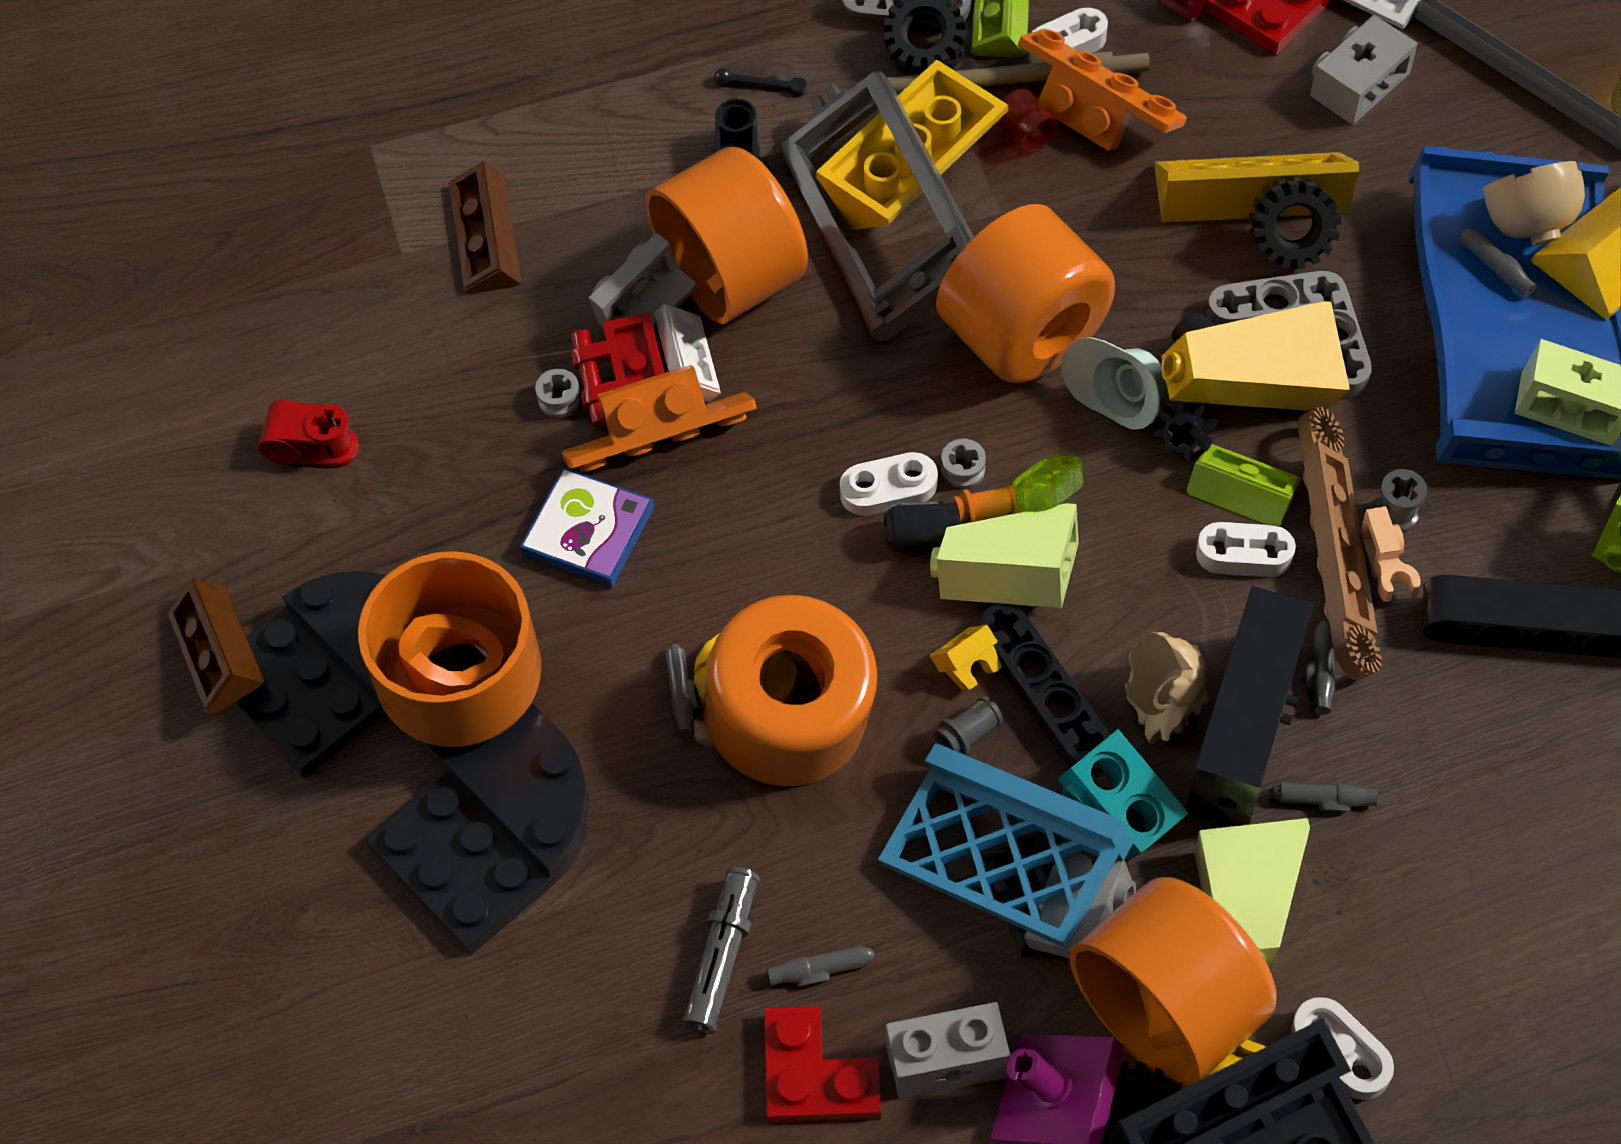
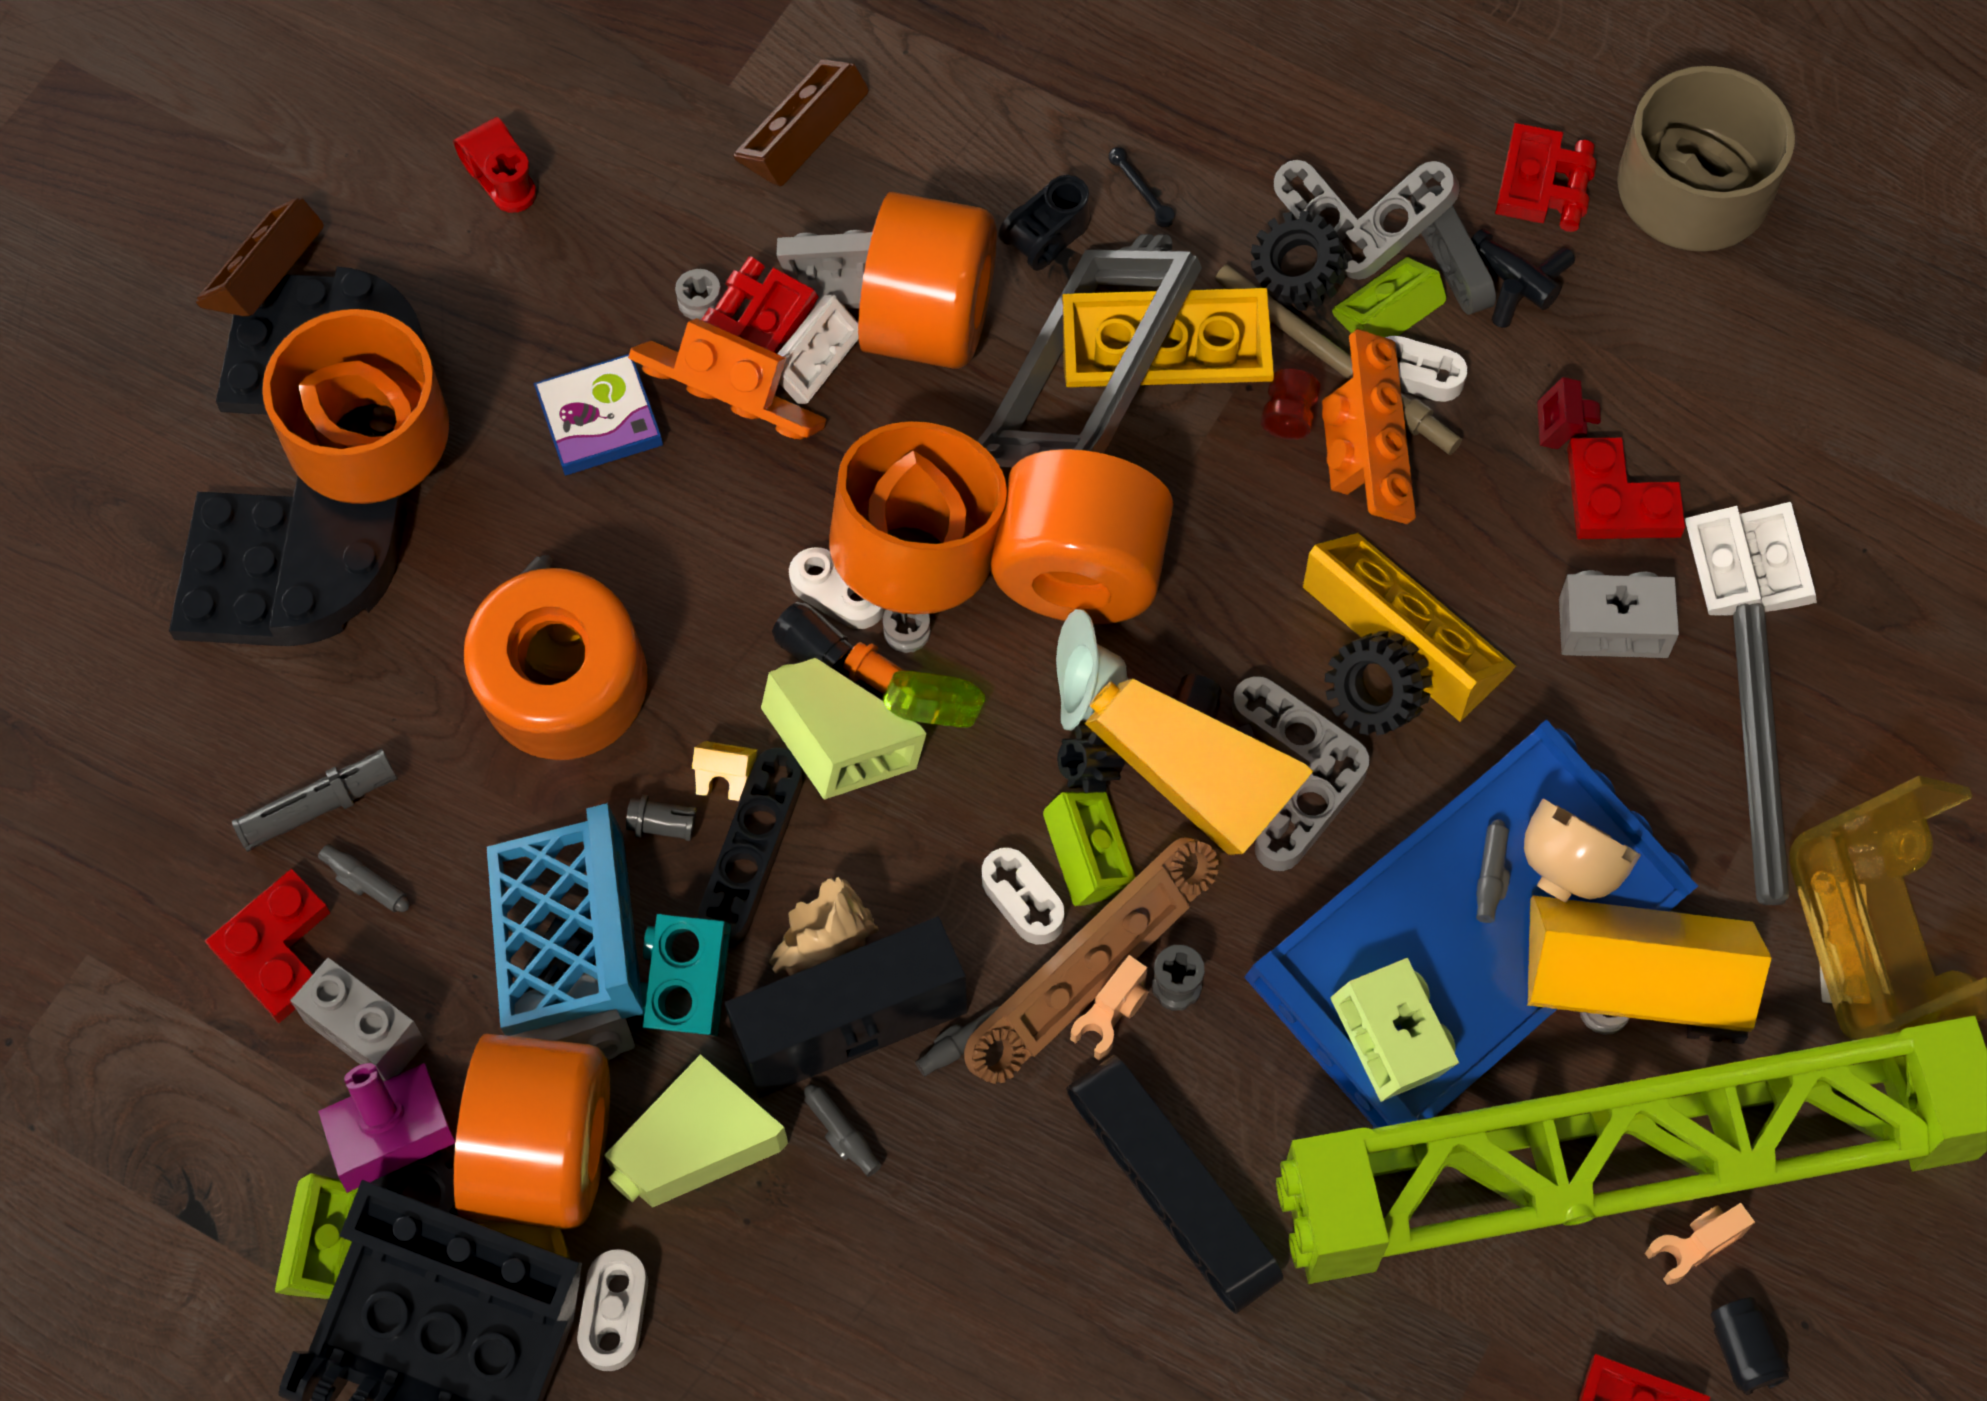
camera: 45 degrees right, 5 degrees up
(907, 379) = (925, 481): none -> orange piece

